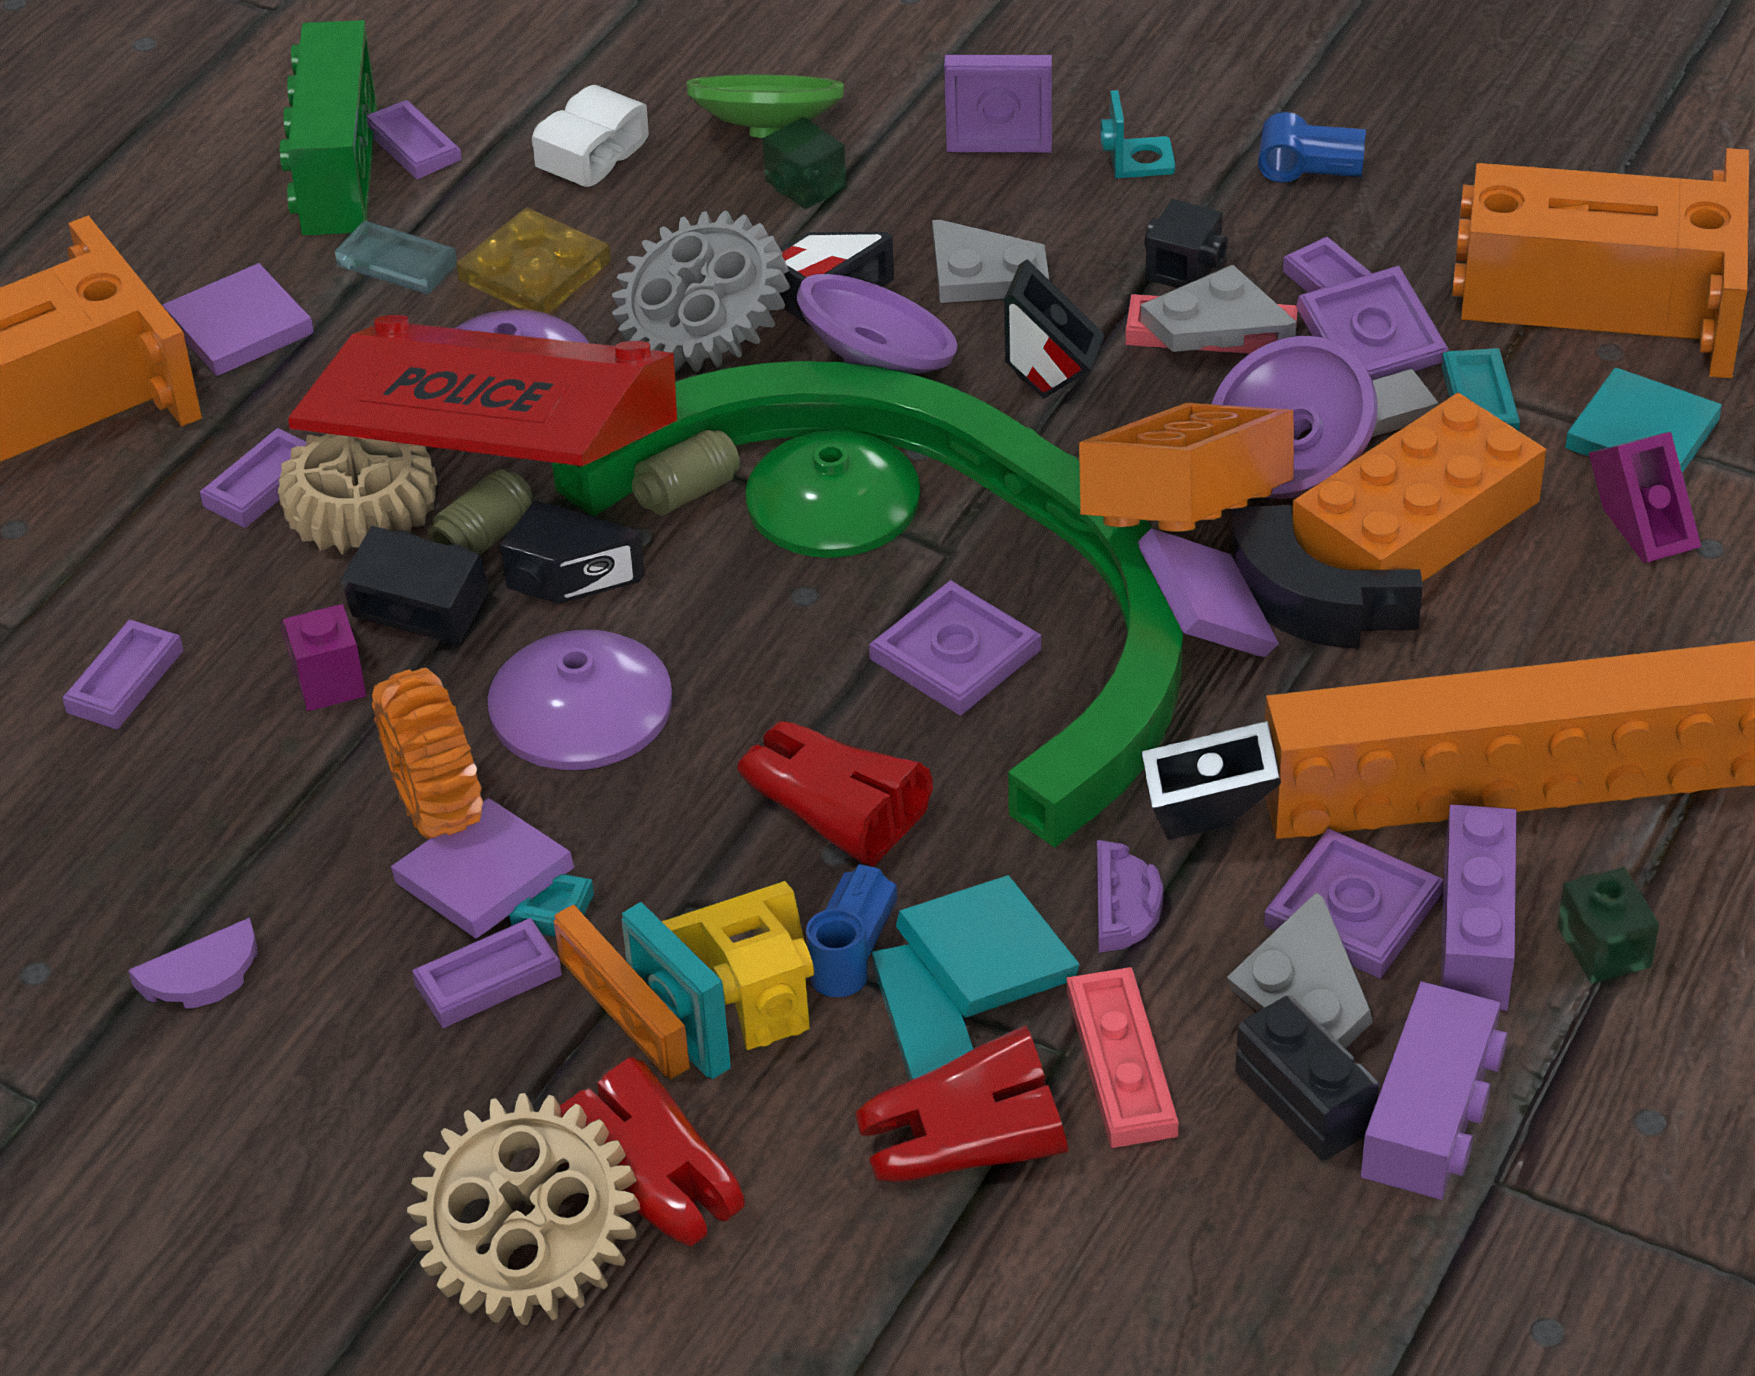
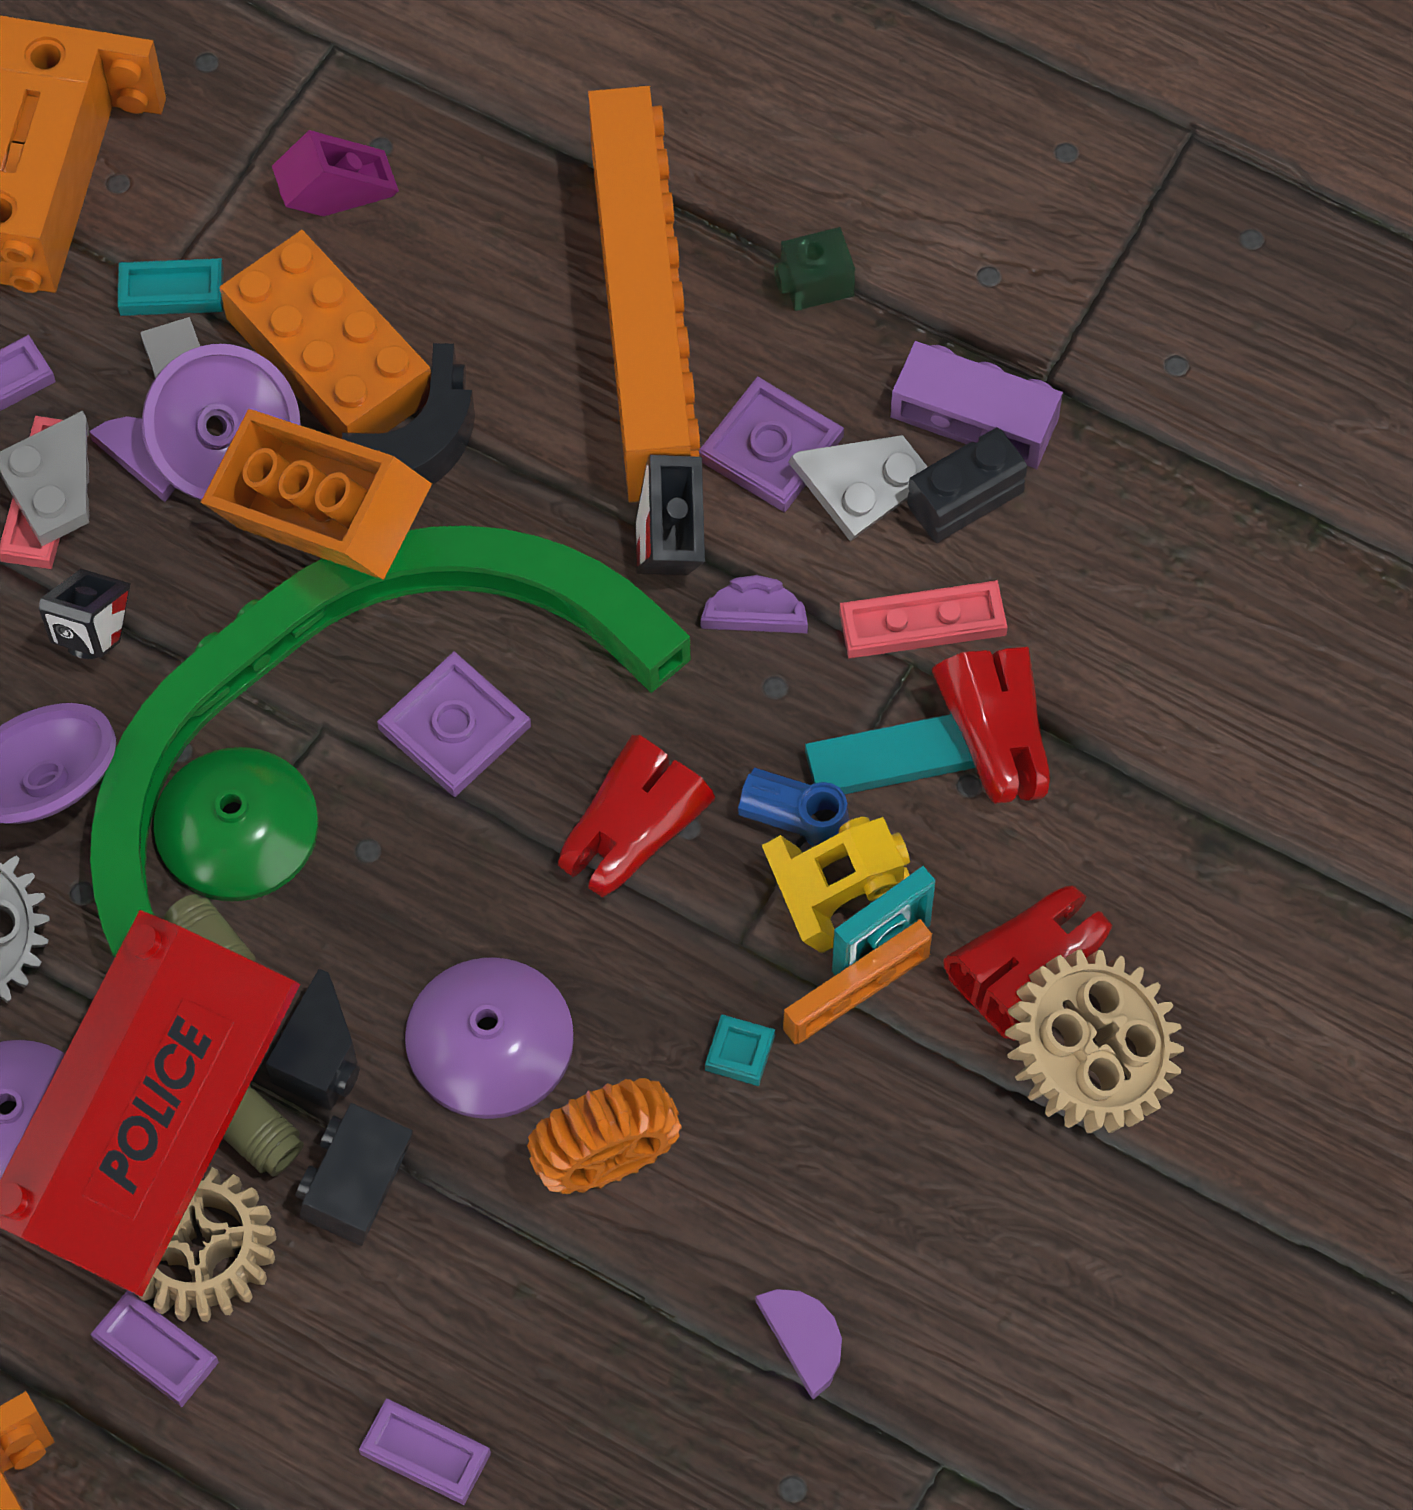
camera: 90 degrees left, 20 degrees up
(324, 657) = (418, 1261): magenta slope -> none
(482, 870) = (716, 1101): medium lavender tile -> none
(486, 972) = (817, 1099): medium lavender tile -> none
(987, 945) = (818, 704): teal tile -> none
(1207, 593) = (457, 506): medium lavender tile -> none
(1377, 321) = (80, 357): medium lavender tile -> none
(1479, 902) = (799, 350): medium lavender brick -> none
(1639, 407) = (227, 169): teal tile -> none

